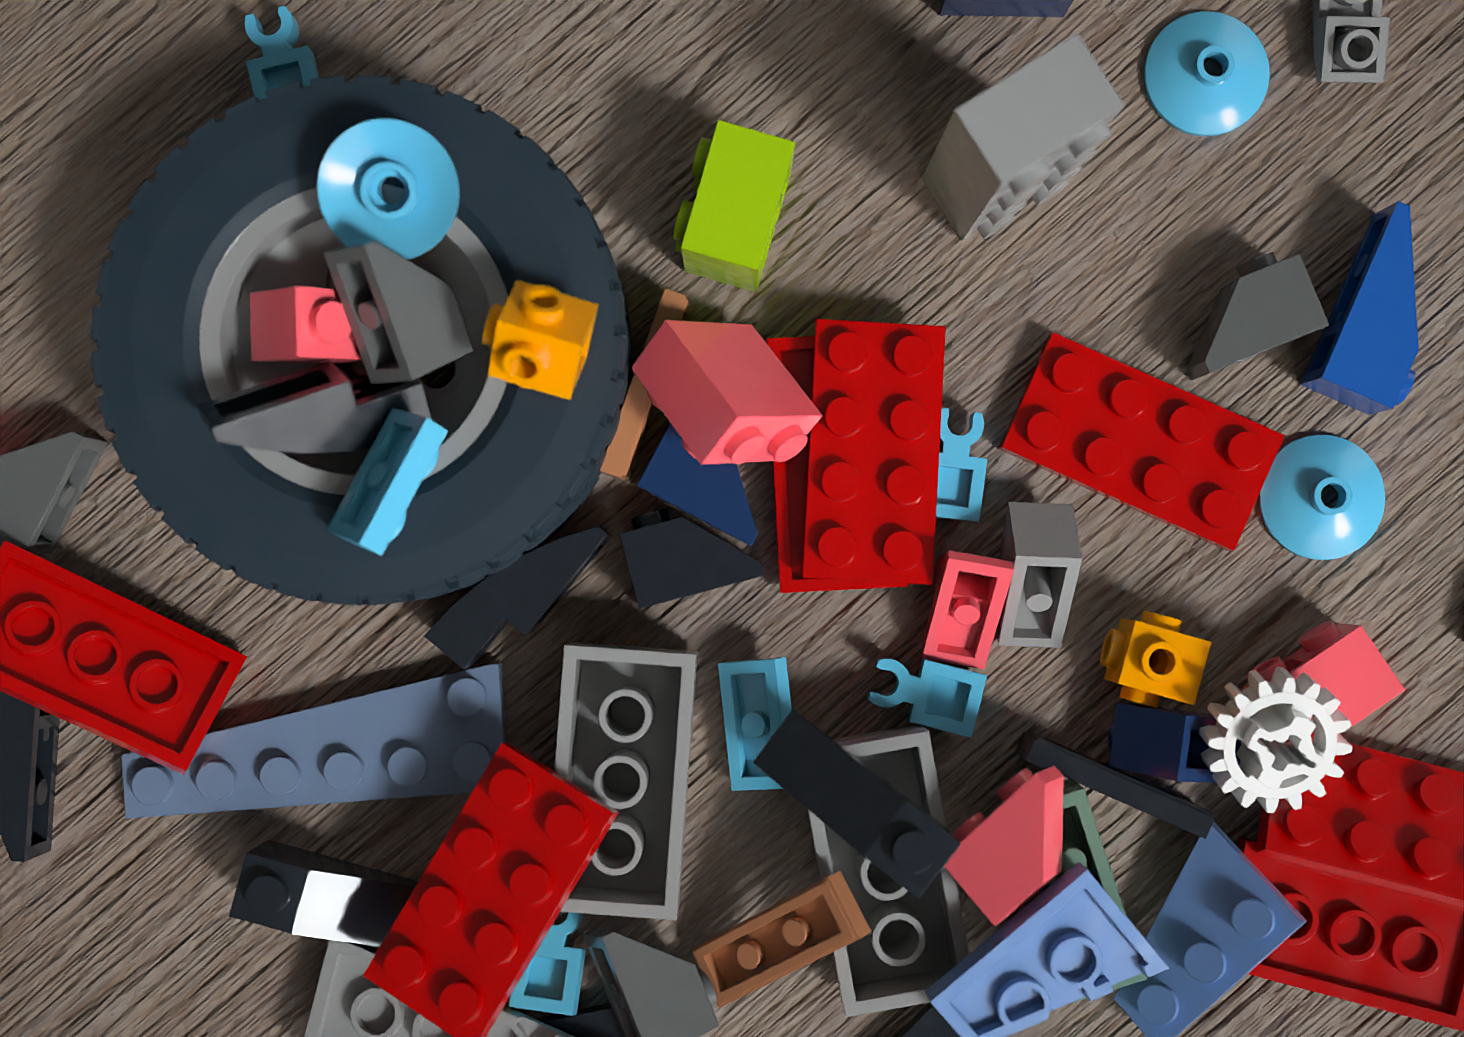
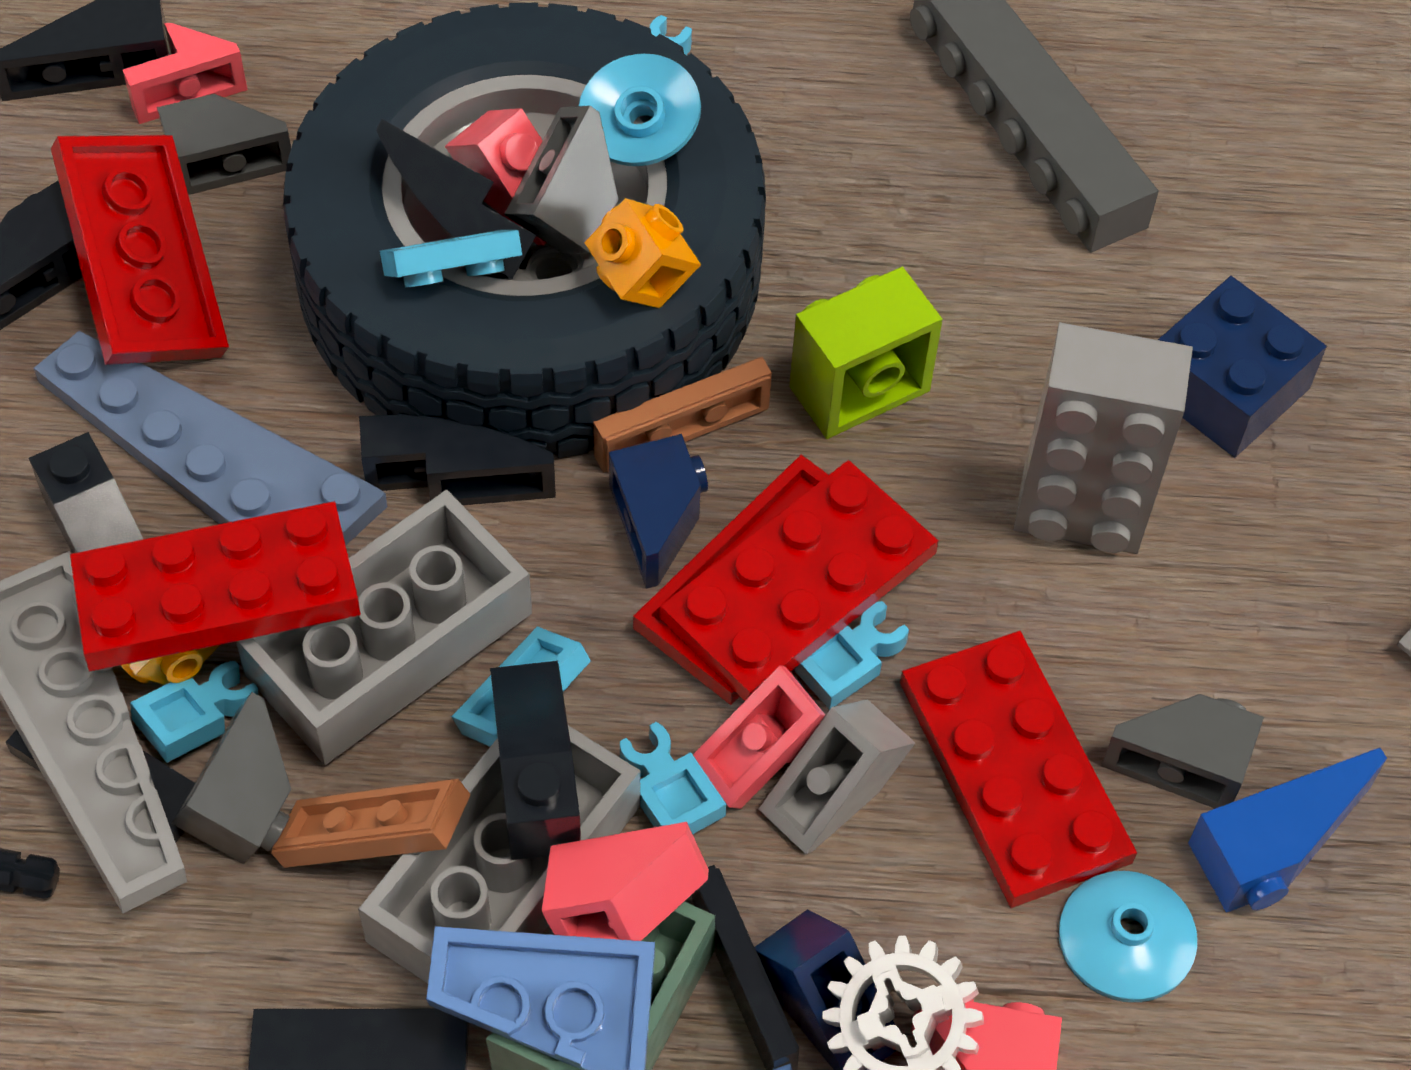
camera: 40 degrees right, 30 degrees down
(680, 559) = (585, 540): black slope -> none
(725, 392) = (733, 439): coral brick -> none
(1175, 662) = (870, 899): light orange brick -> none
(1190, 96) = (1305, 595): medium azure dish -> none

